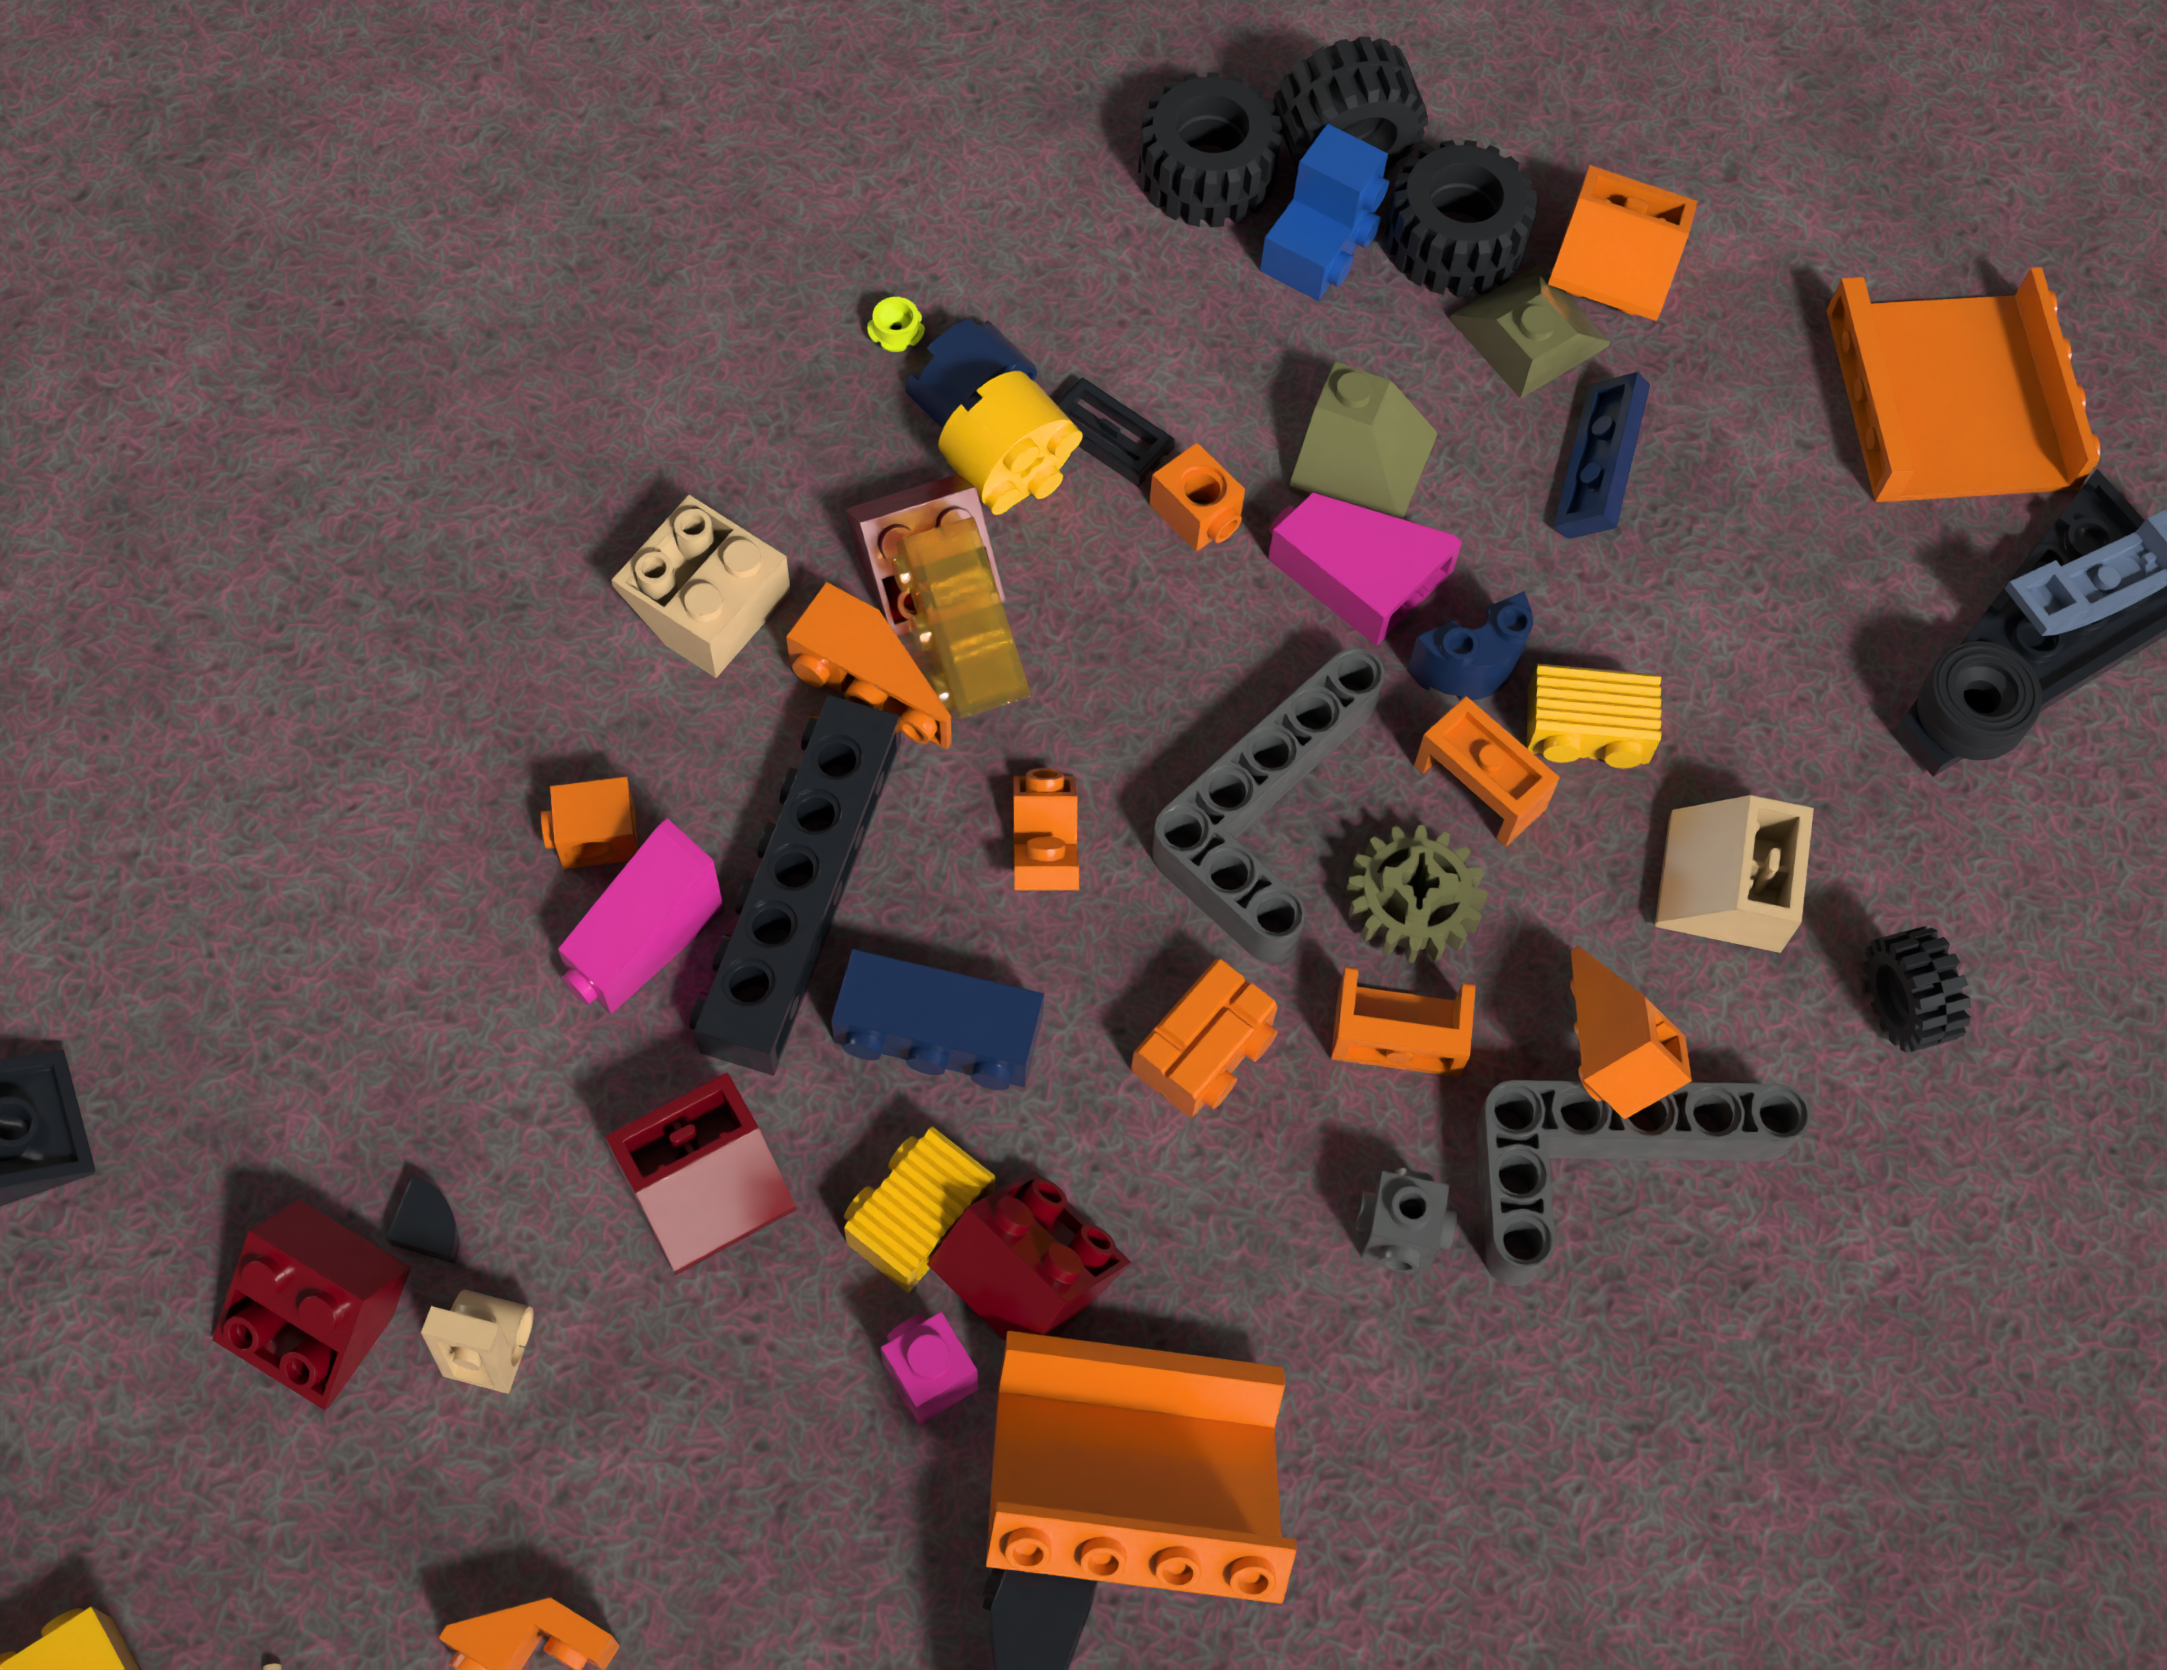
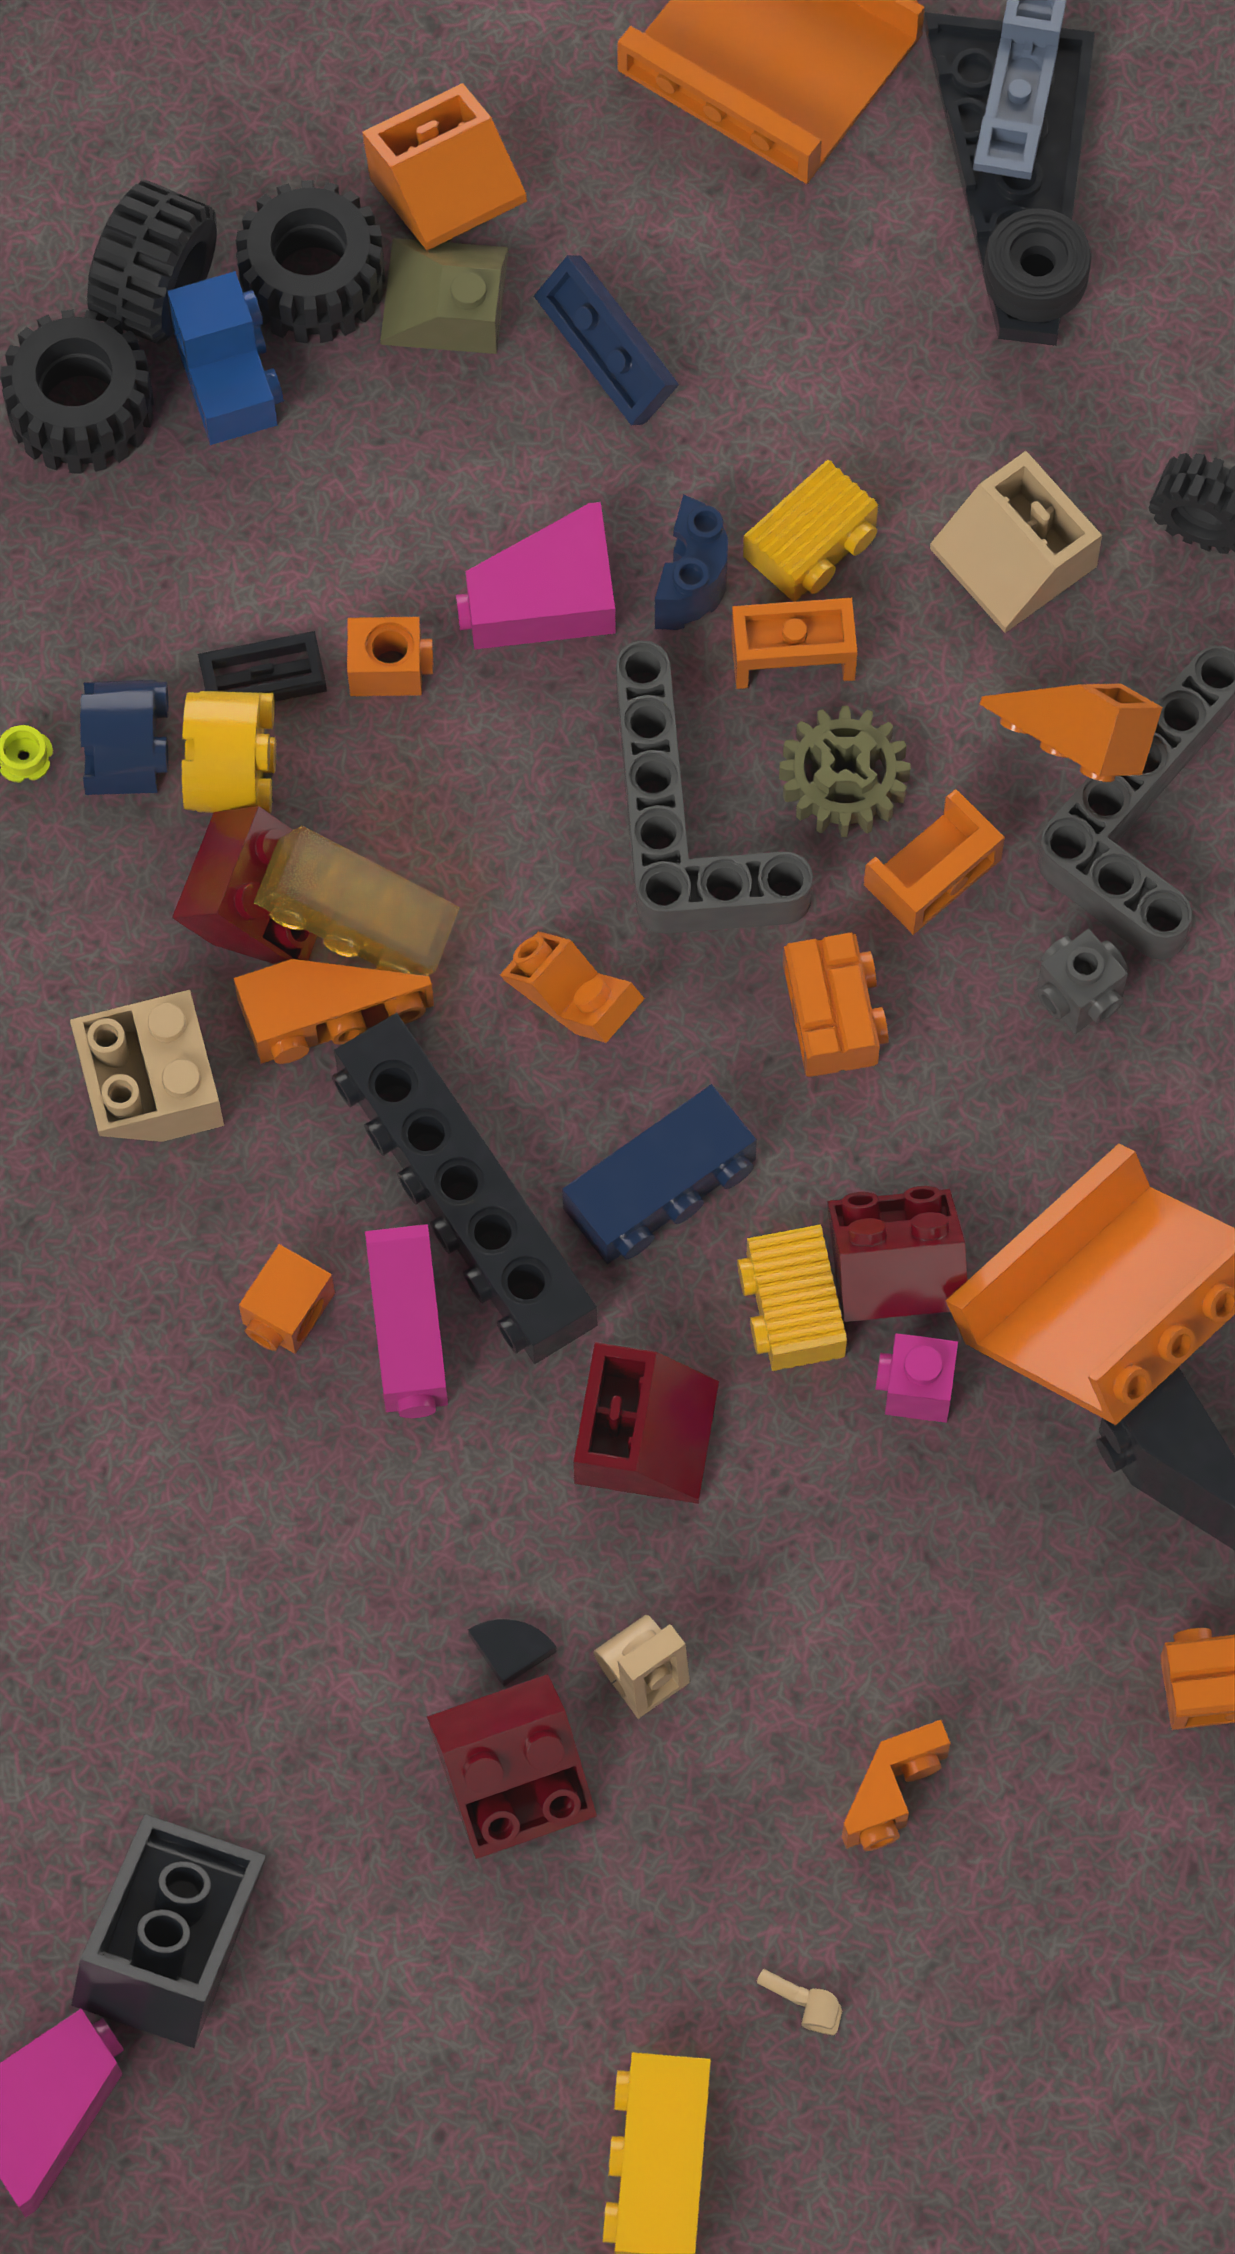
camera: 45 degrees left, 5 degrees up
(1363, 444) = (445, 504): olive slope -> none

